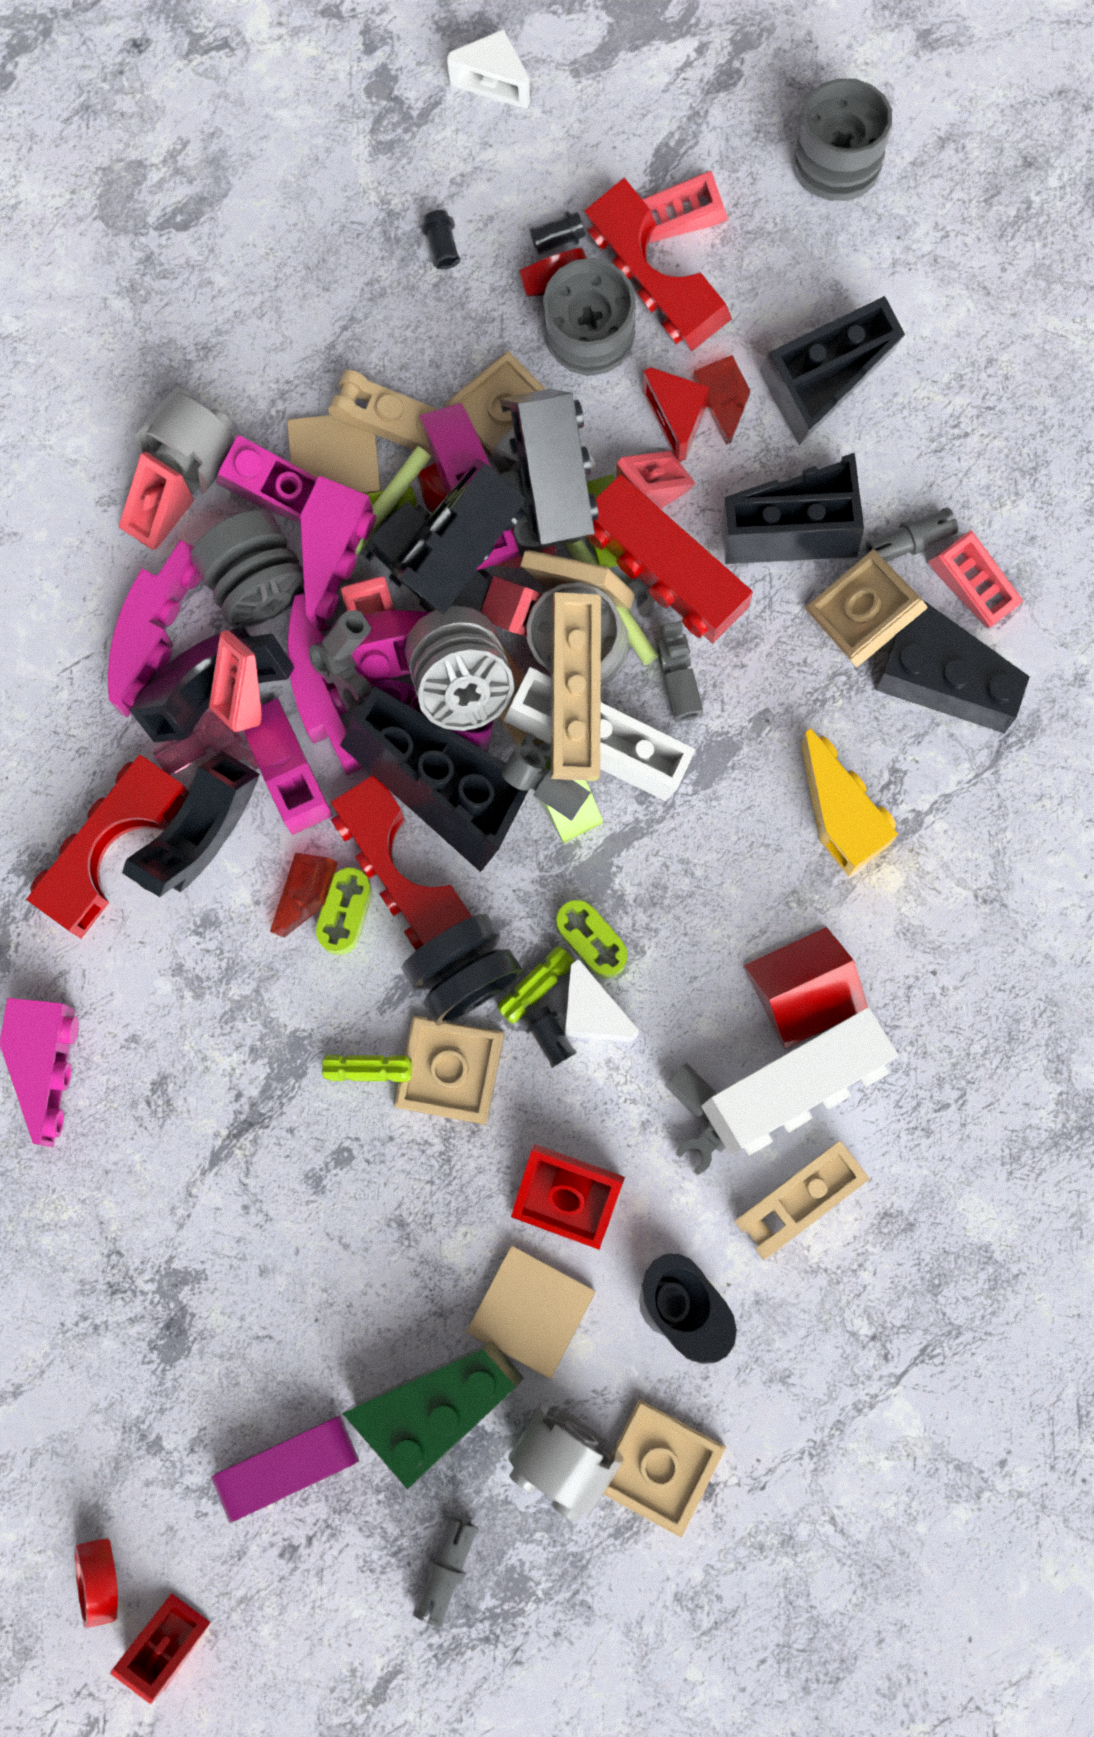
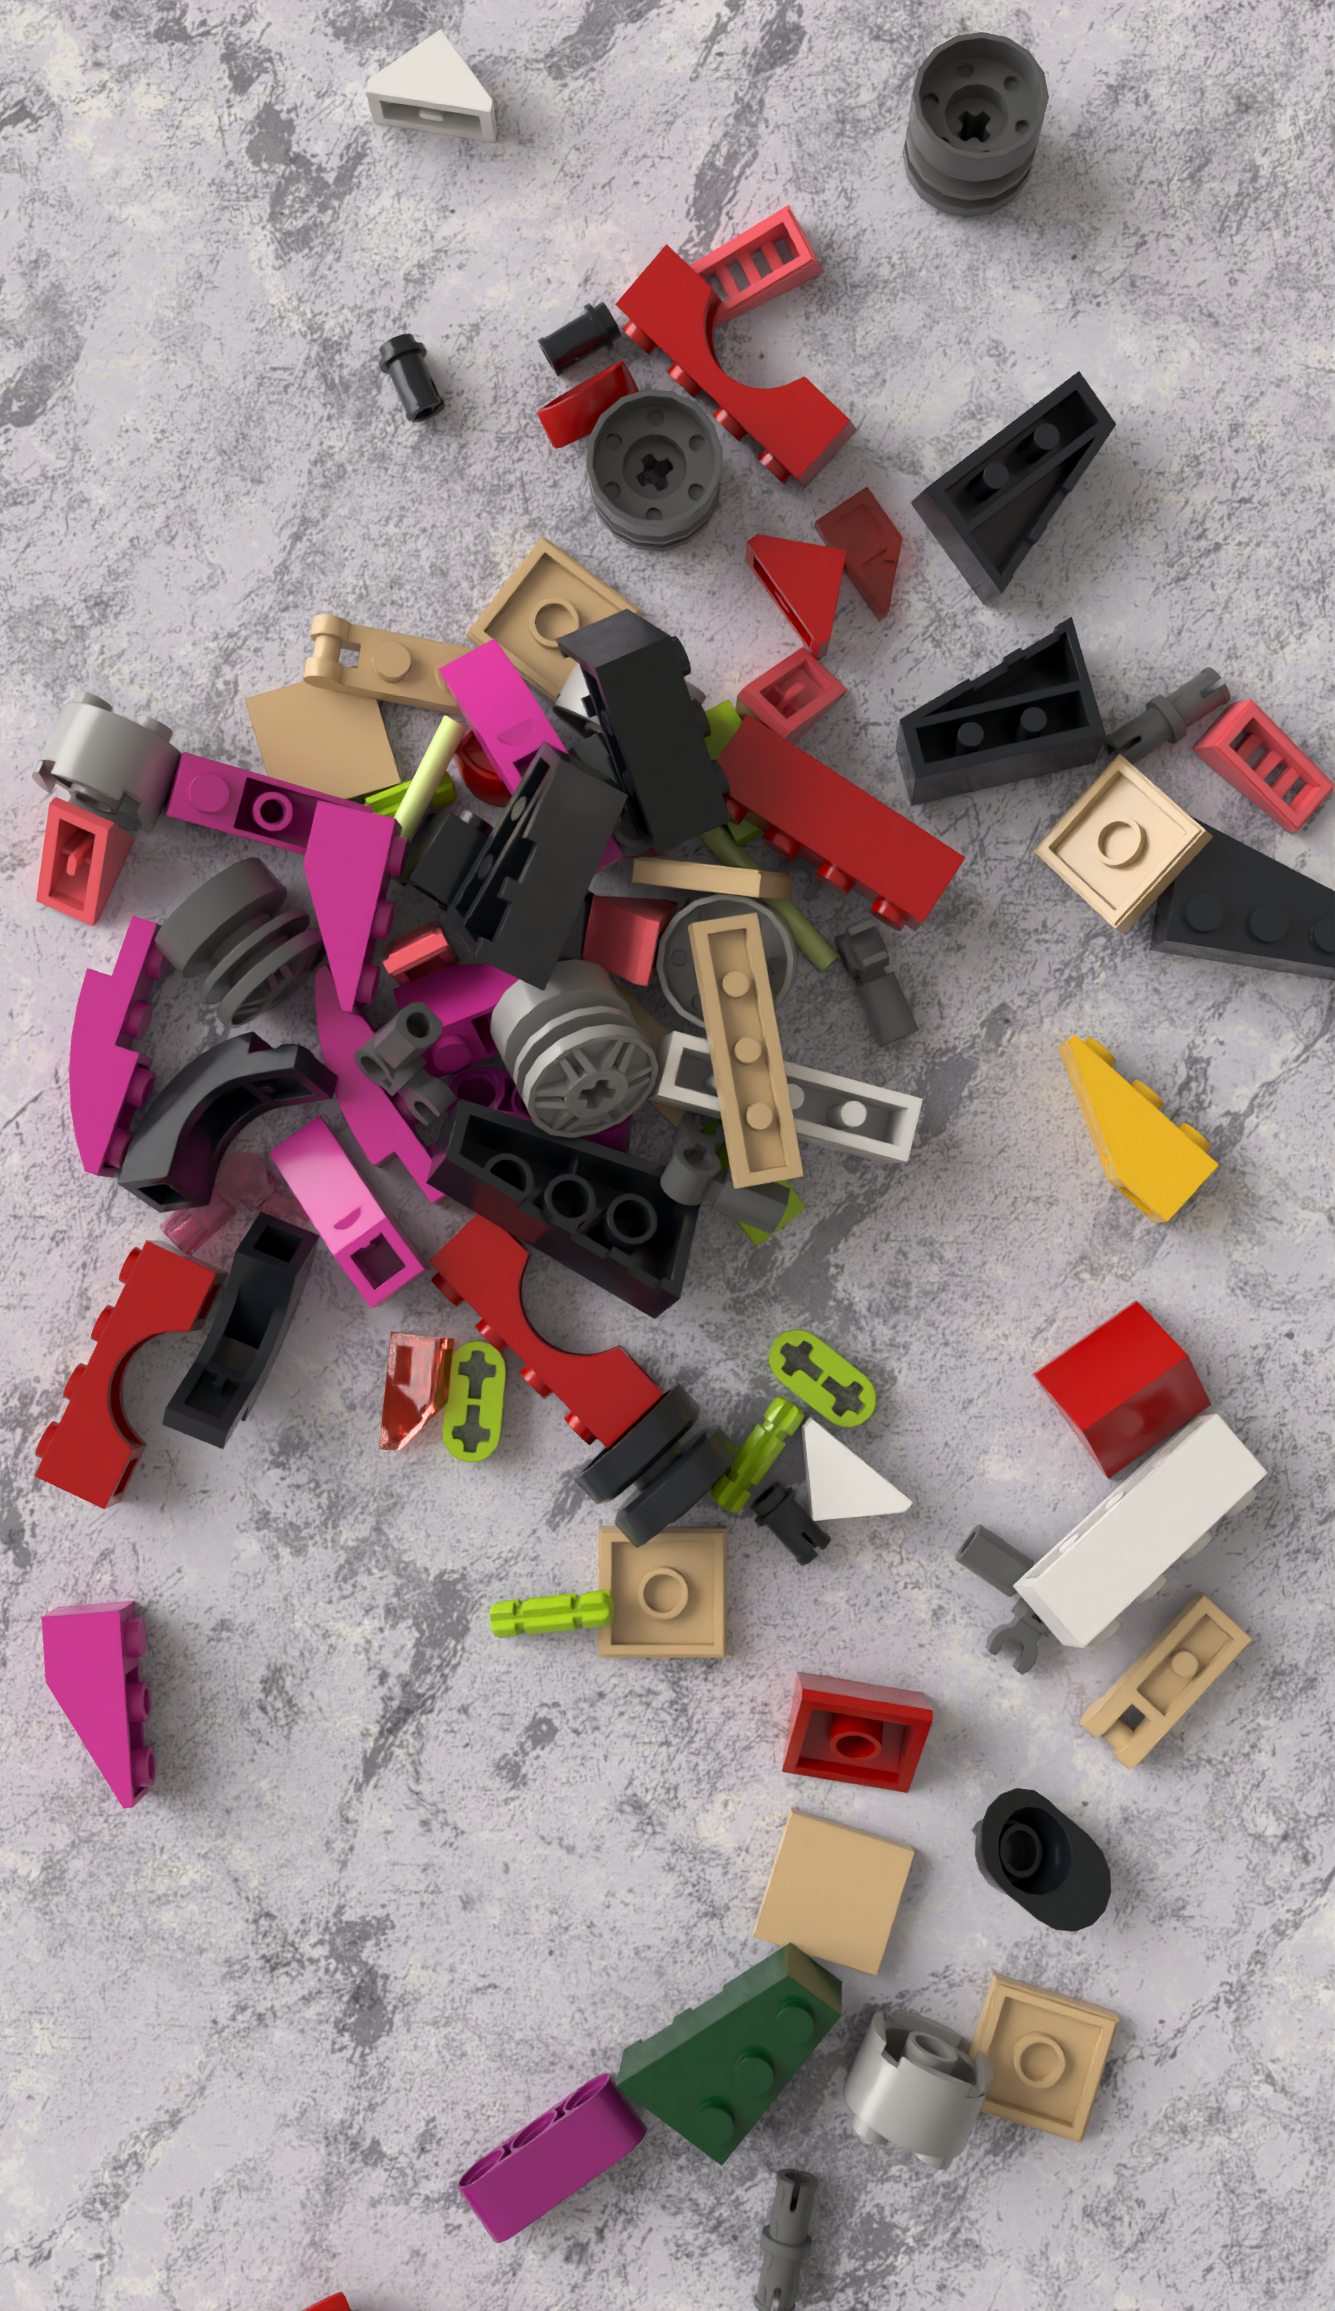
camera: 15 degrees left, 10 degrees up
(235, 685) = (261, 1123): coral slope -> none

